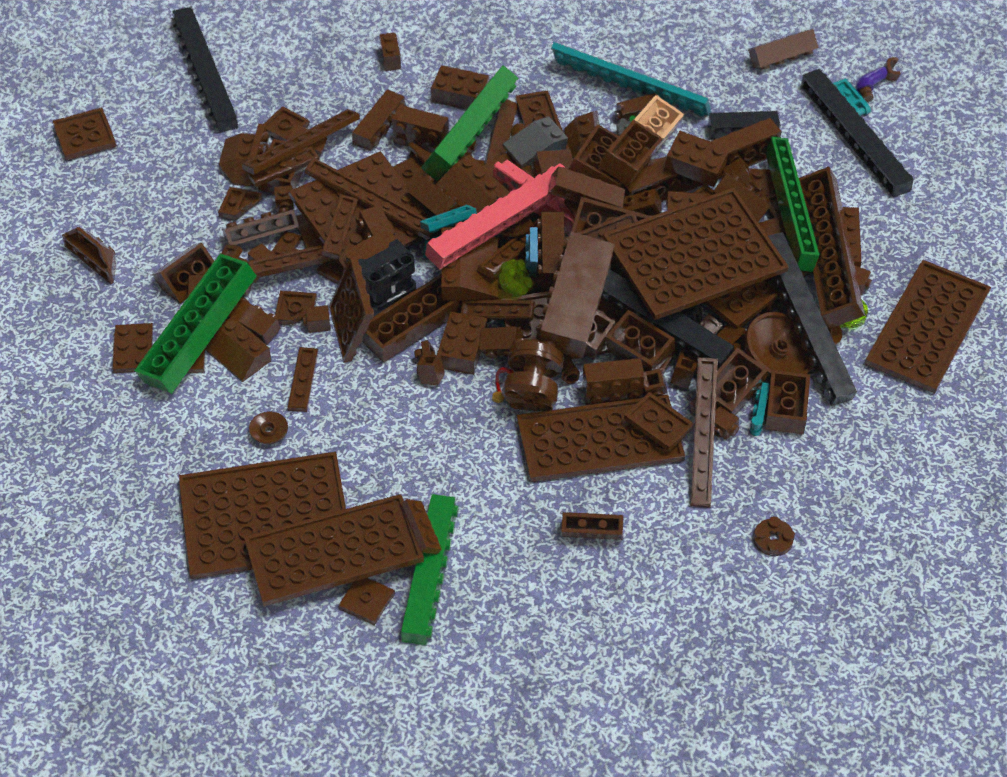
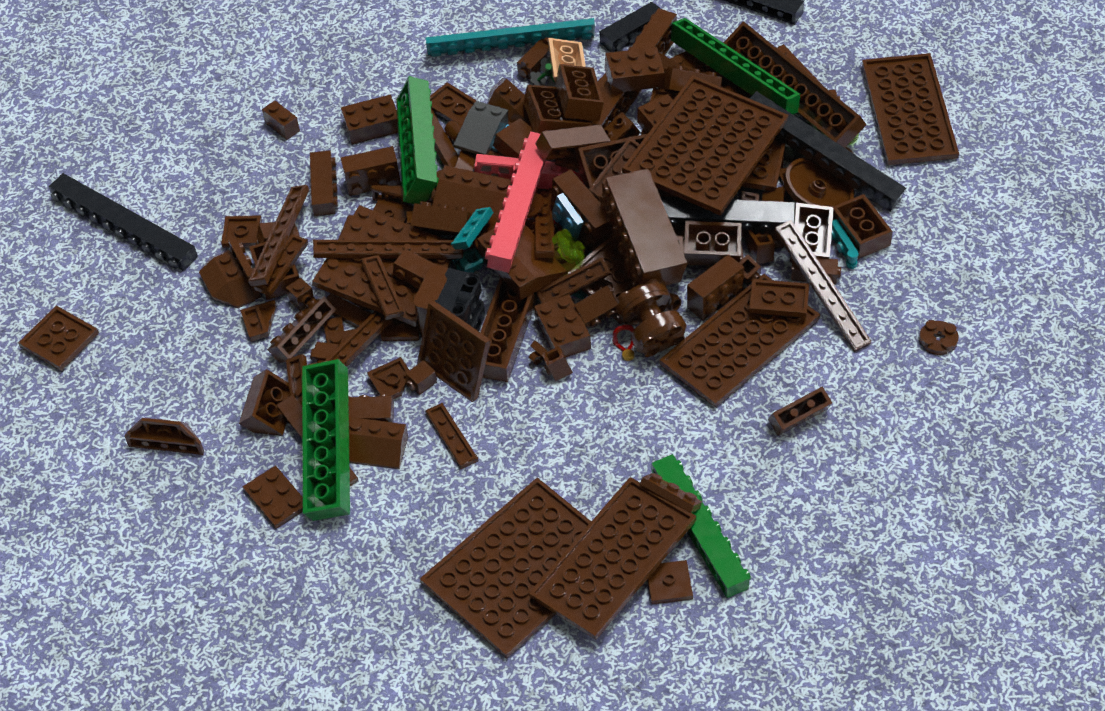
camera: 30 degrees left, 0 degrees up
(268, 421) = (461, 485): reddish brown dish -> none

